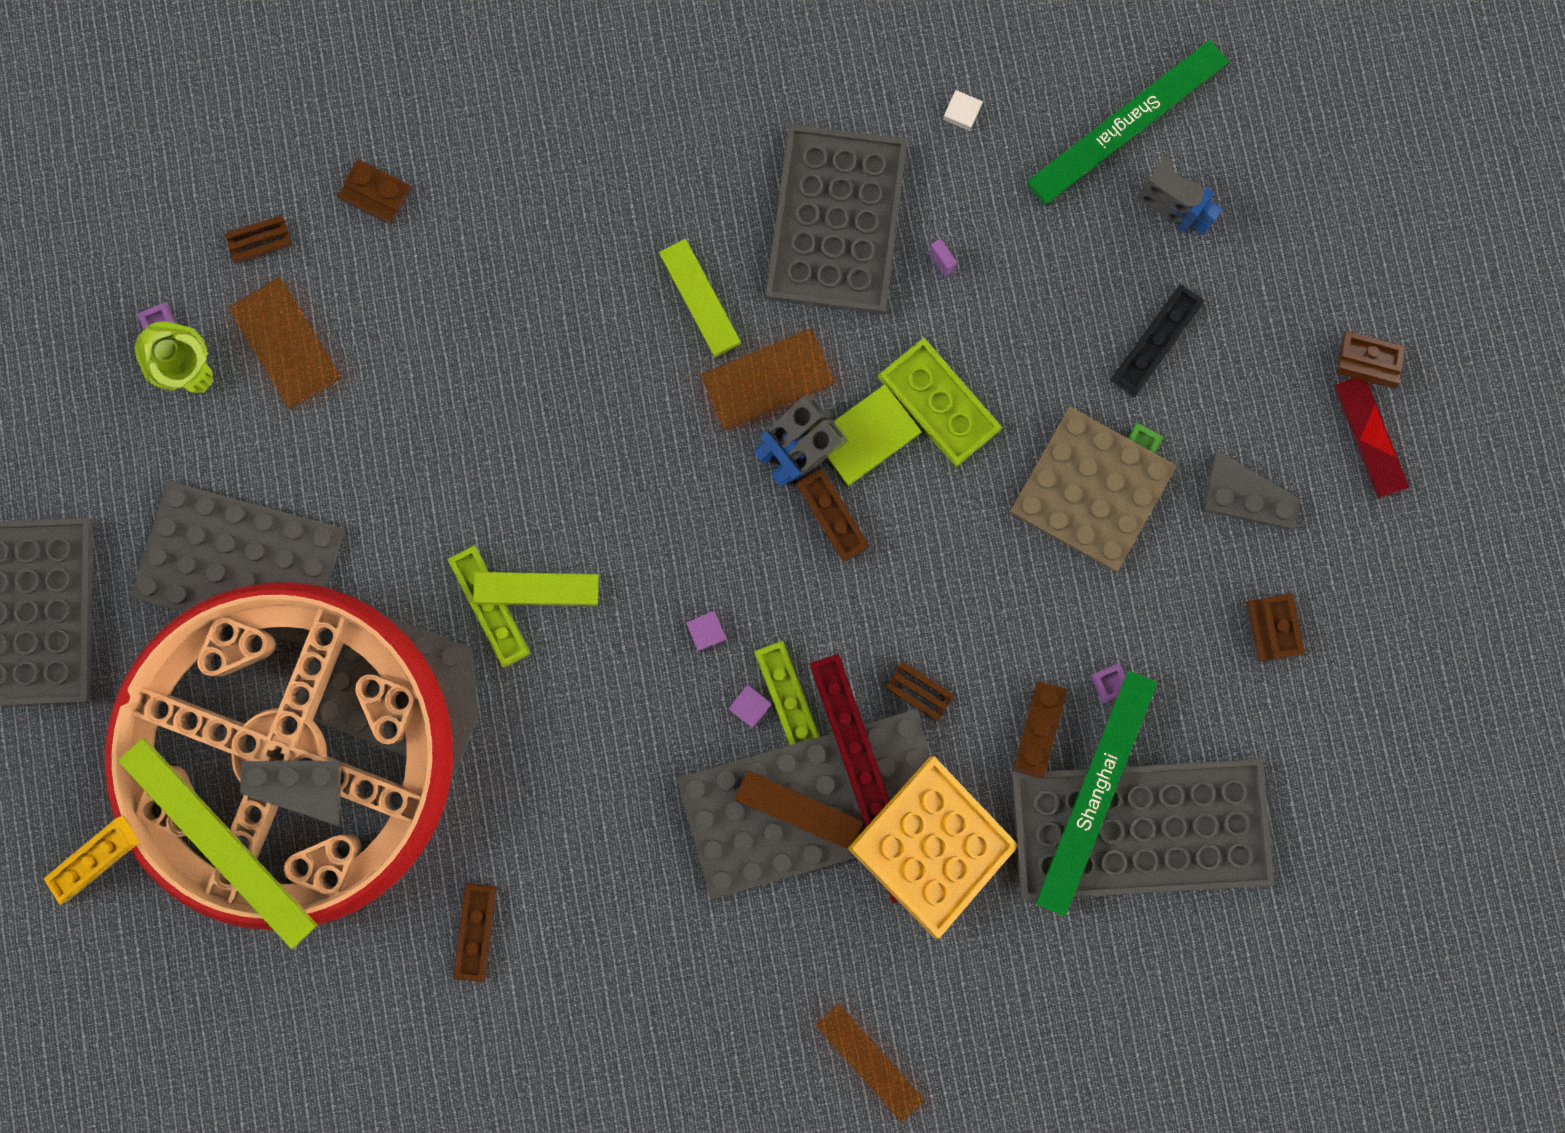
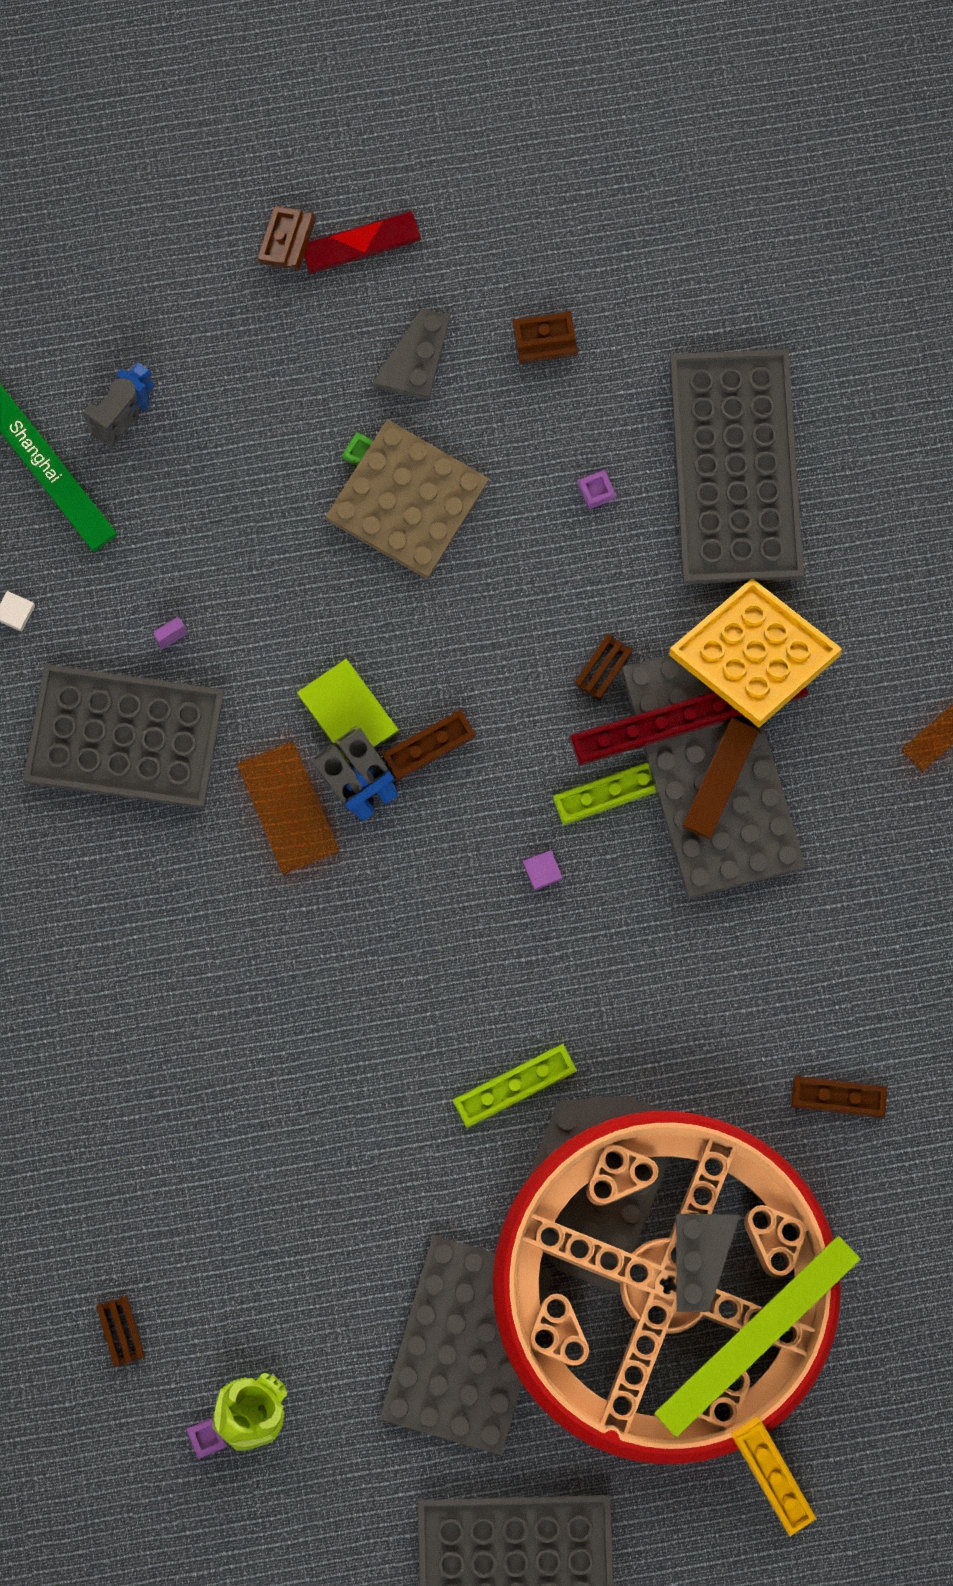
camera: 90 degrees left, 5 degrees down
(285, 342) = (233, 1300): clear orange tile -> none
(374, 192) = (73, 1209): reddish brown plate -> none
(535, 589) = (499, 1036): lime tile -> none
(700, 298) = (201, 874): lime tile -> none
(750, 706) = (617, 828): medium lavender tile -> none
(940, 402) = (315, 641): lime tile -> none
(1040, 730) = (642, 554): reddish brown plate -> none
(1096, 793) = (703, 503): green tile -> none
(1157, 340) = (259, 433): black tile -> none

